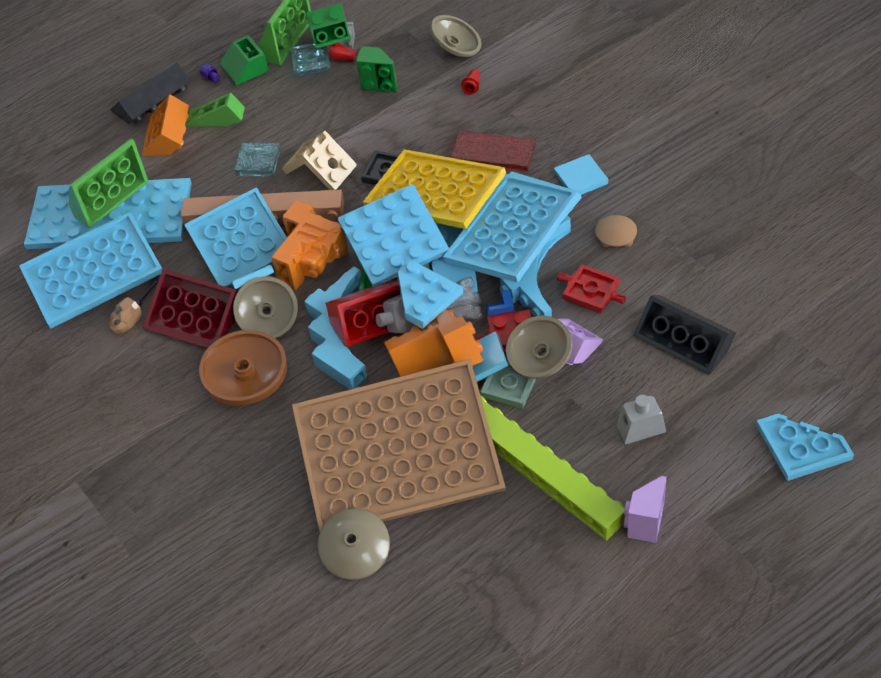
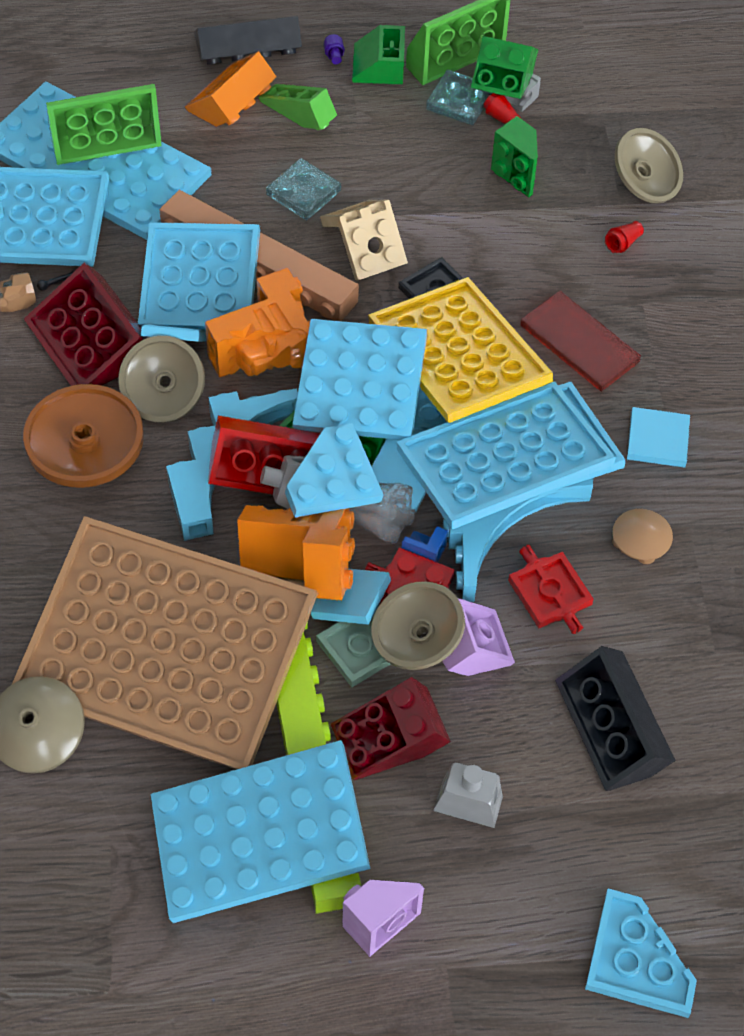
camera: 25 degrees right, 5 degrees up
(540, 514) = (258, 832): none -> medium azure plate
(566, 416) = (391, 730): none -> dark red slope

